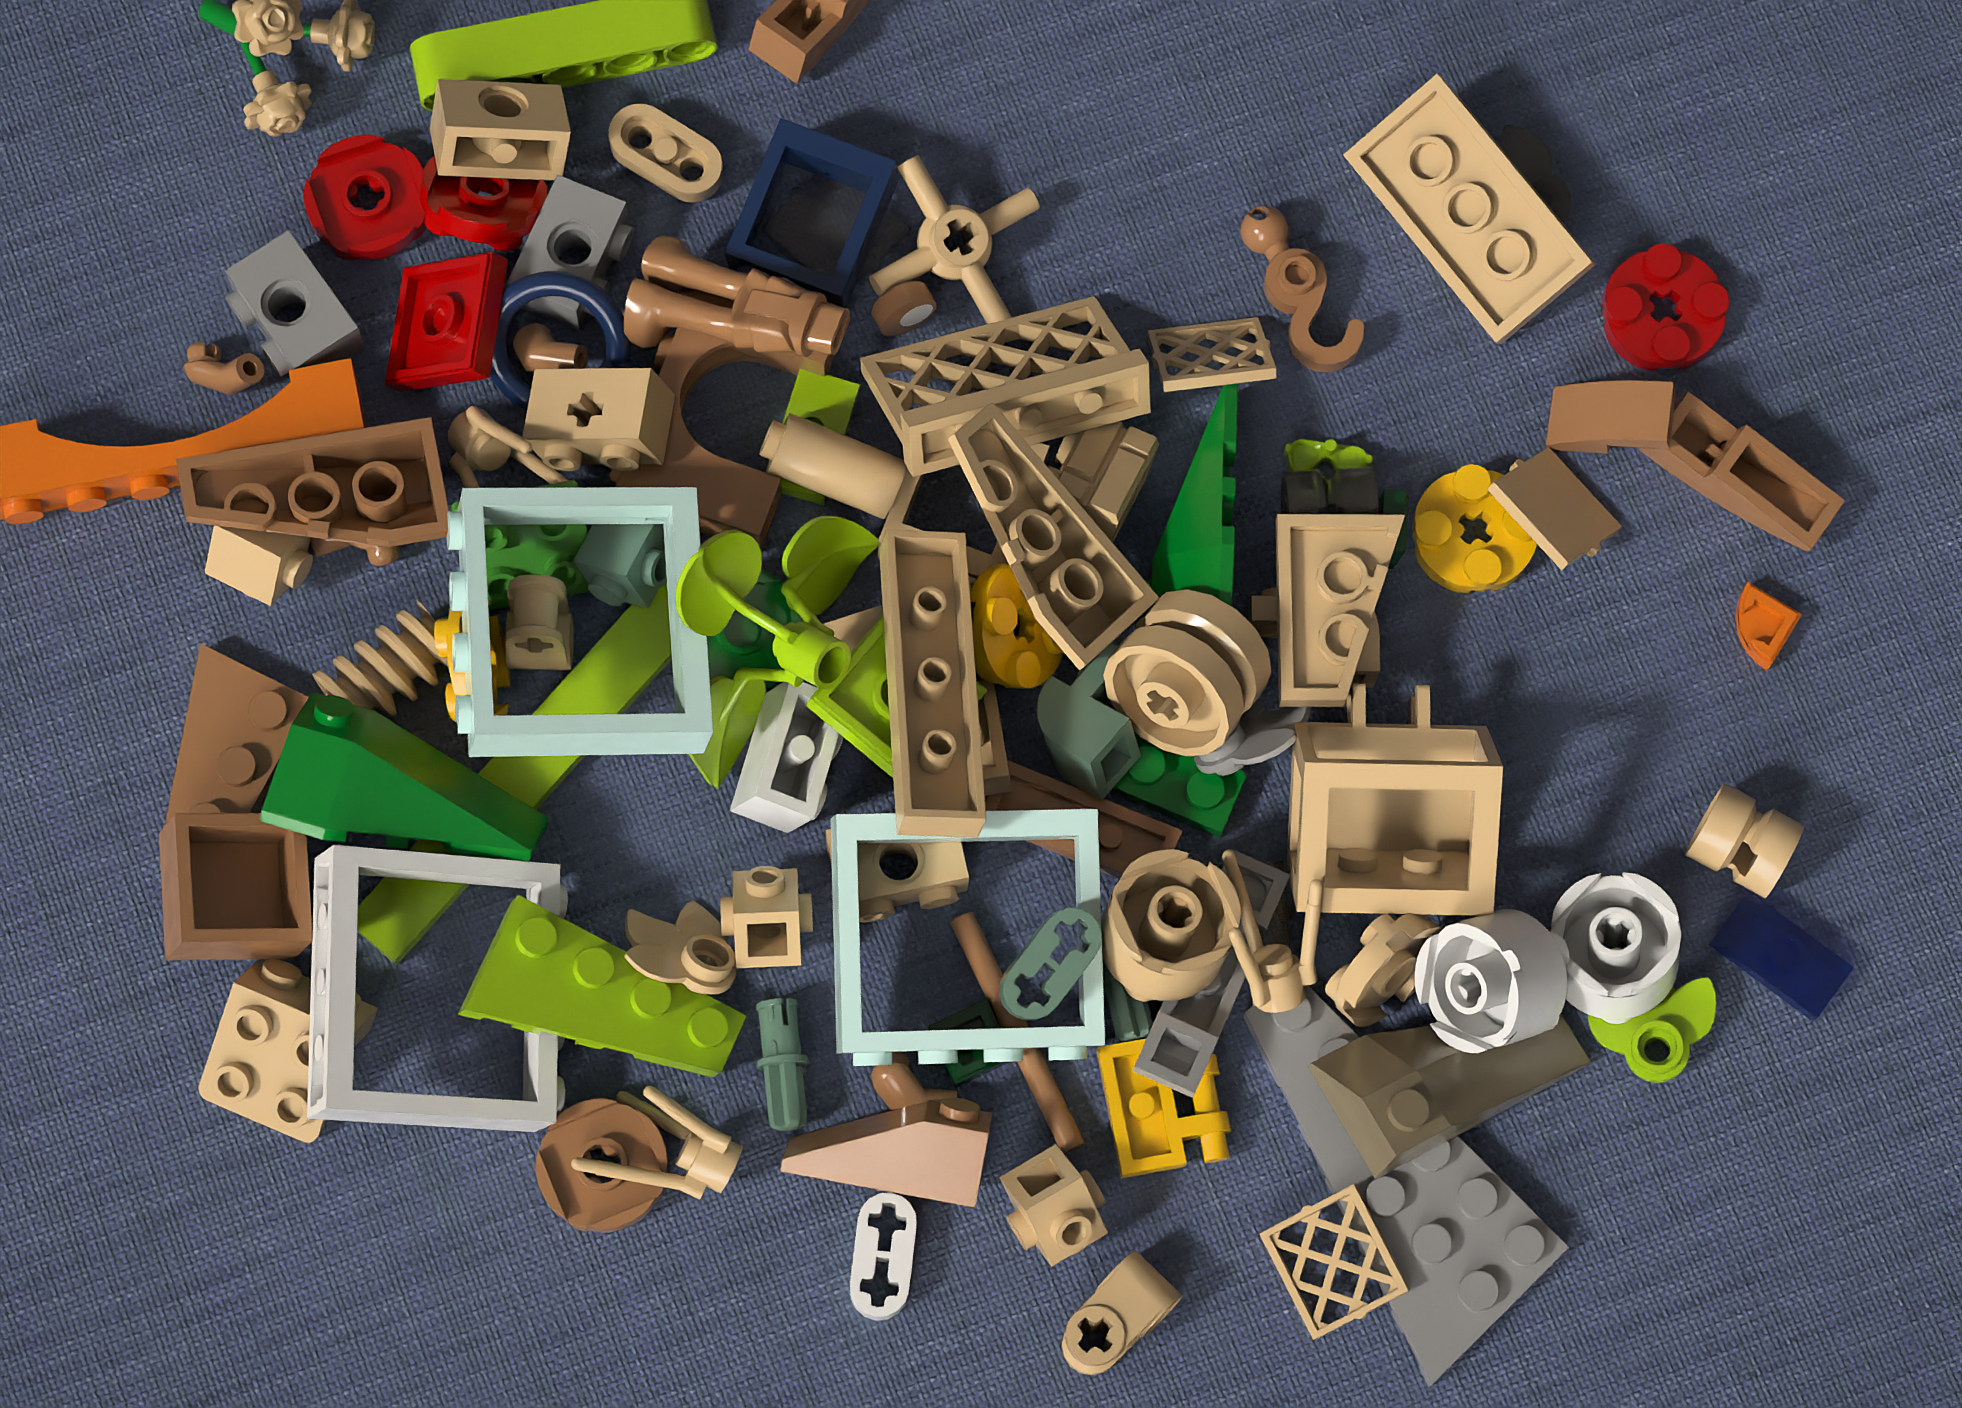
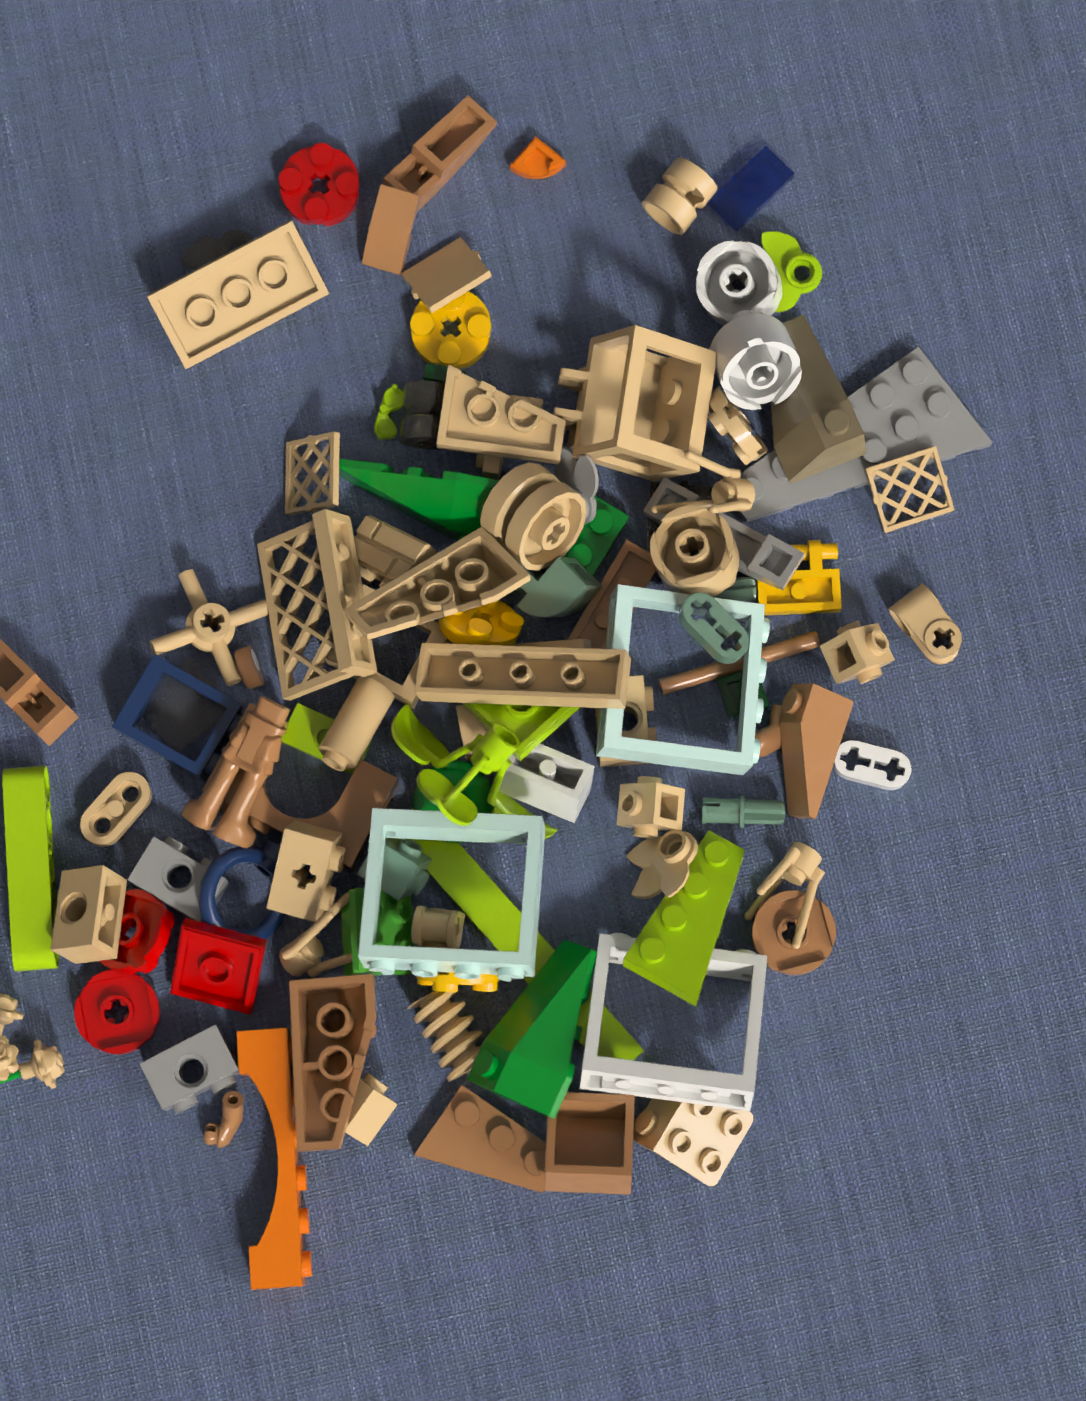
camera: 75 degrees left, 5 degrees up
(539, 350) = (247, 907): medium nougat arm -> none
(1296, 287) = (270, 413): medium nougat piece -> none

